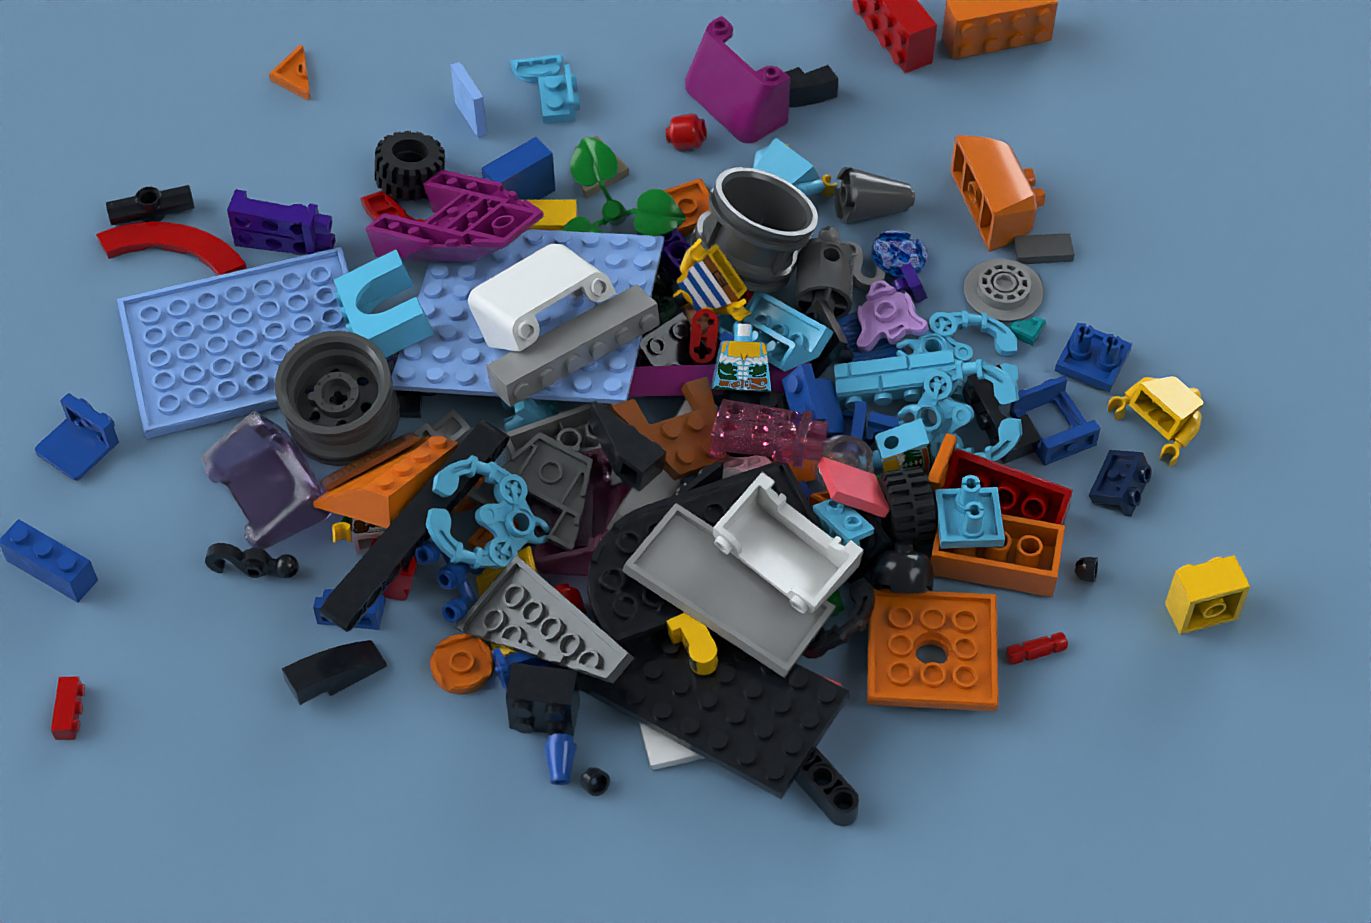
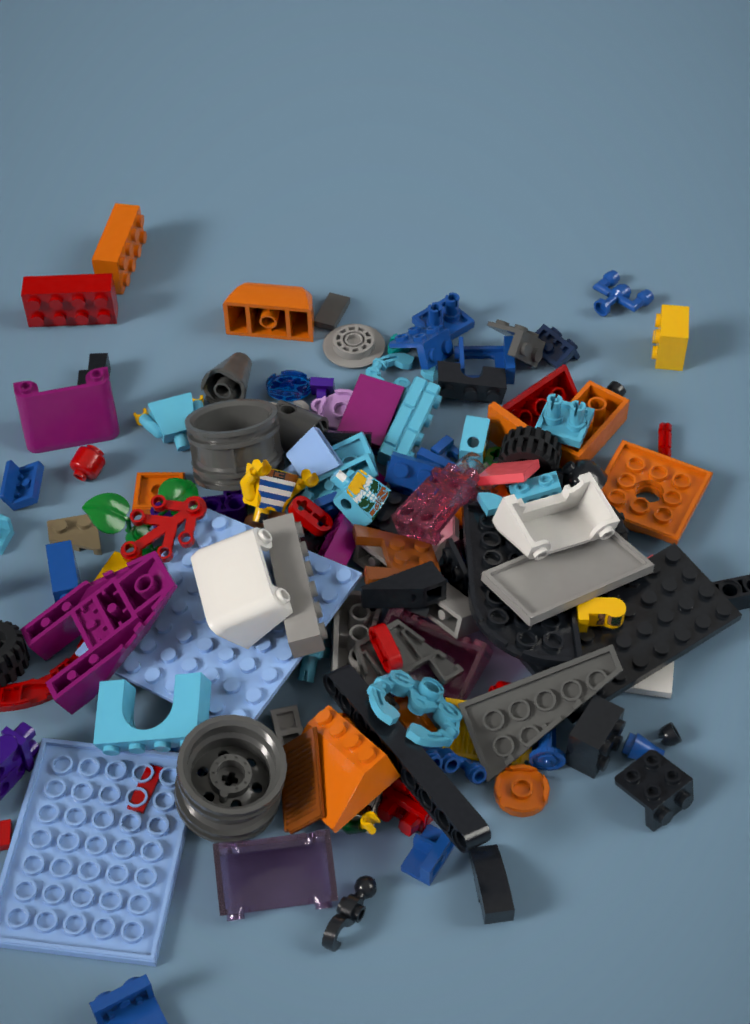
camera: 65 degrees left, 5 degrees down
(508, 782) = (657, 786): none -> black bracket
(541, 458) = (385, 647): none -> red beam
(629, 93) = (21, 484): none -> blue bracket
(640, 229) = (165, 526): none -> red plant
(777, 302) = (312, 453): none -> light blue torso
(793, 486) = (489, 502): none -> medium azure tile
(890, 332) = (372, 408): none -> magenta tile
(952, 414) = (464, 403): medium azure piece -> none
(1033, 350) = (431, 343): none -> blue bracket
(1092, 438) = (525, 344): none -> dark grey bracket
(1167, 407) = (513, 299): yellow torso -> none
(1262, 520) = (619, 294): none -> blue piece

